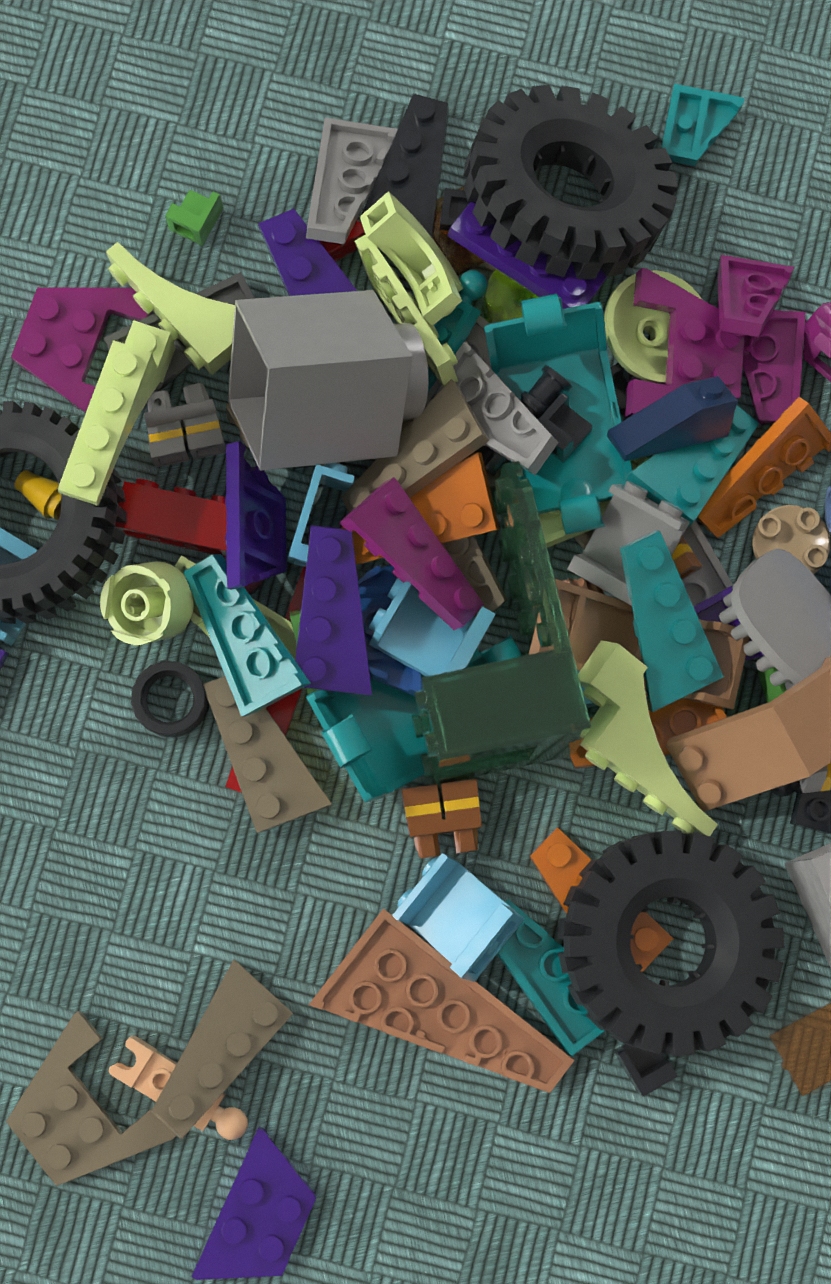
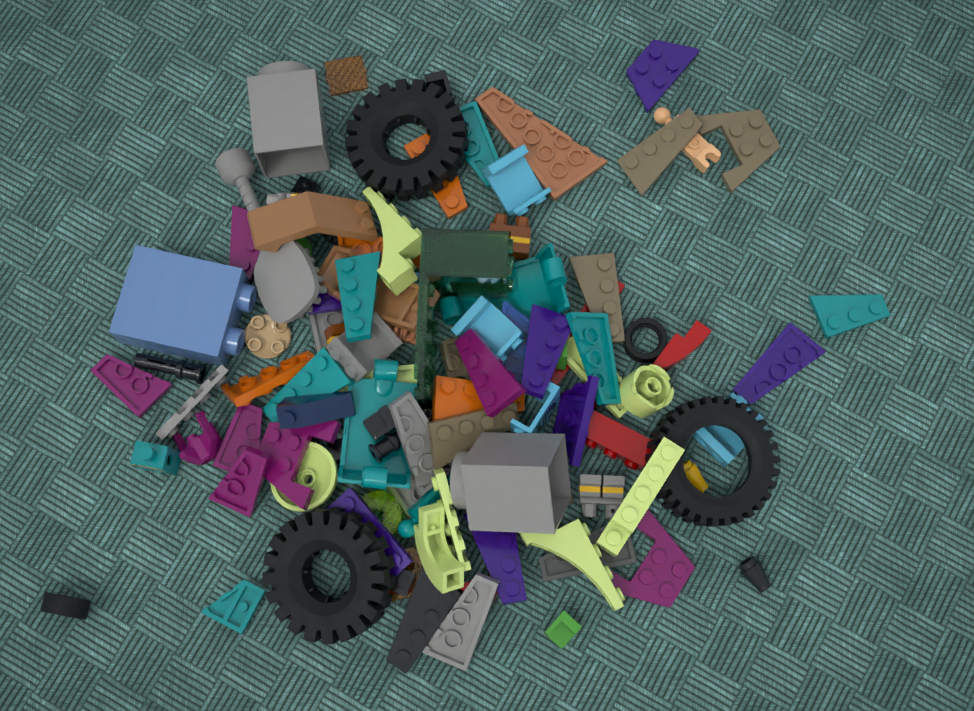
camera: 160 degrees left, 5 degrees down
(107, 697) = (681, 348): none -> red slope

